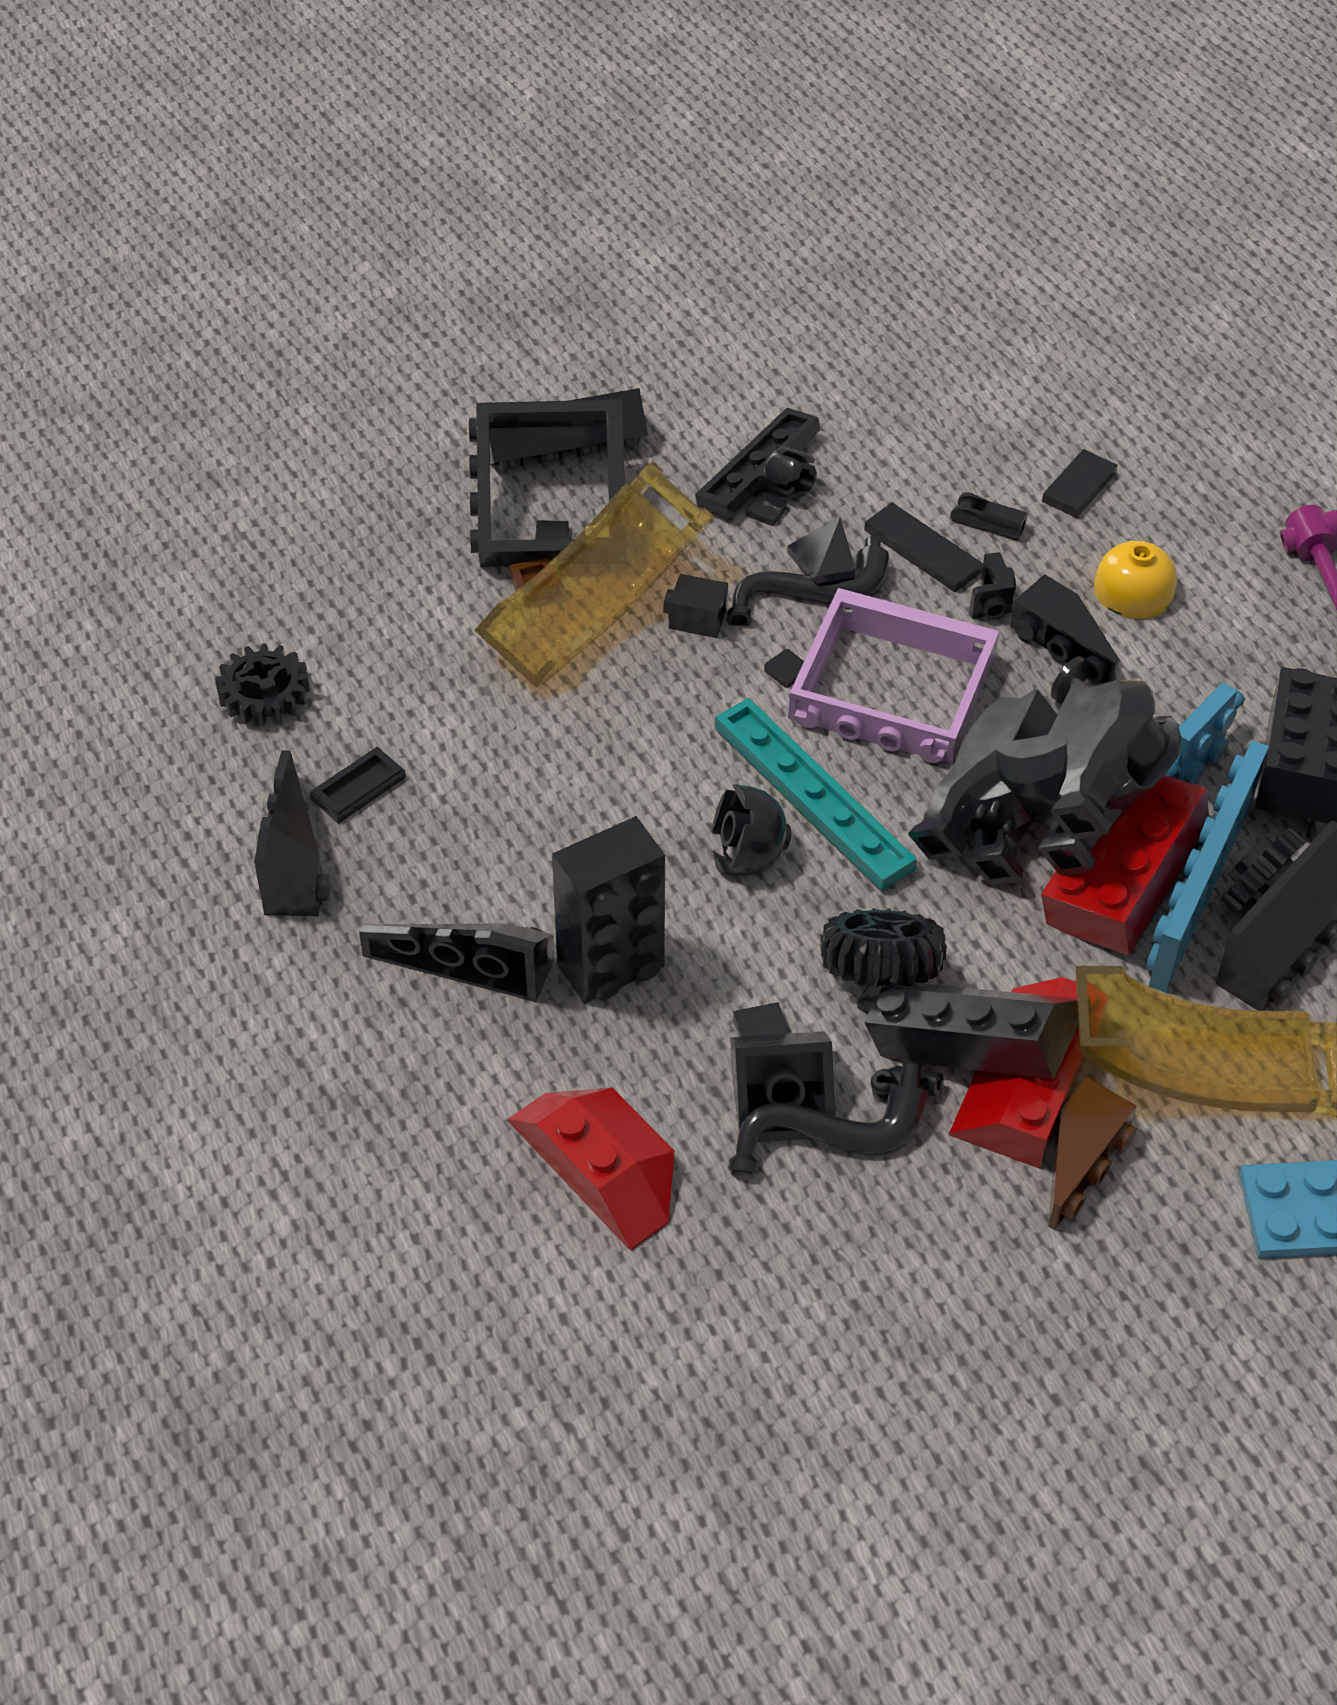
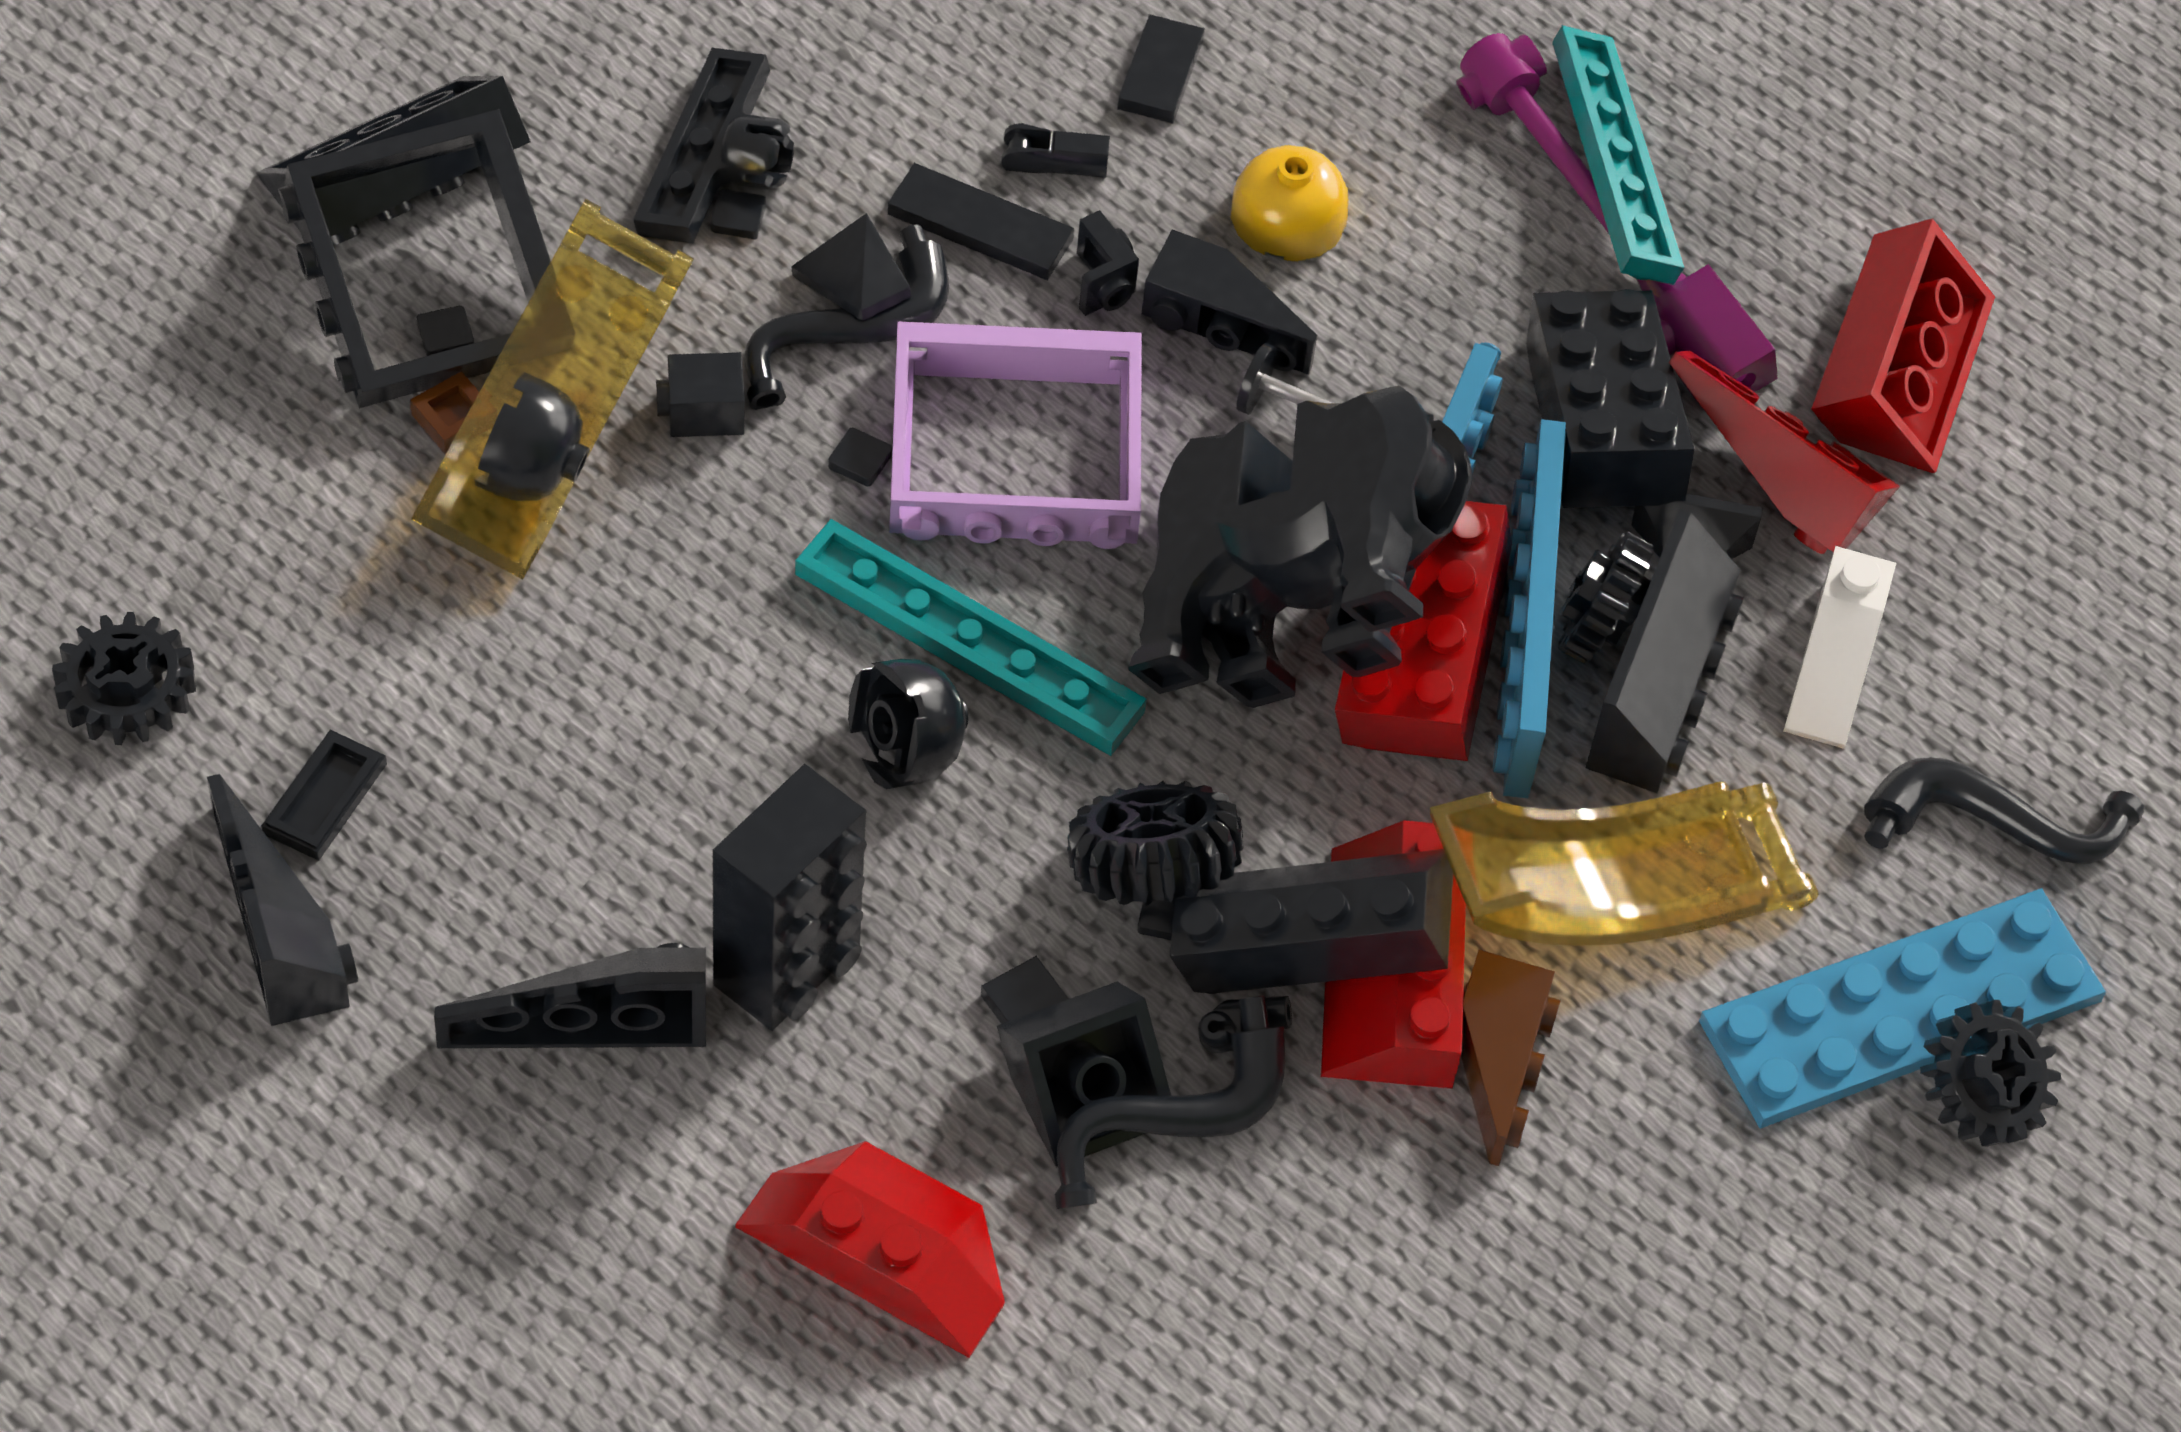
camera: 25 degrees left, 5 degrees up
(565, 600) = (533, 444): none -> black cylinder

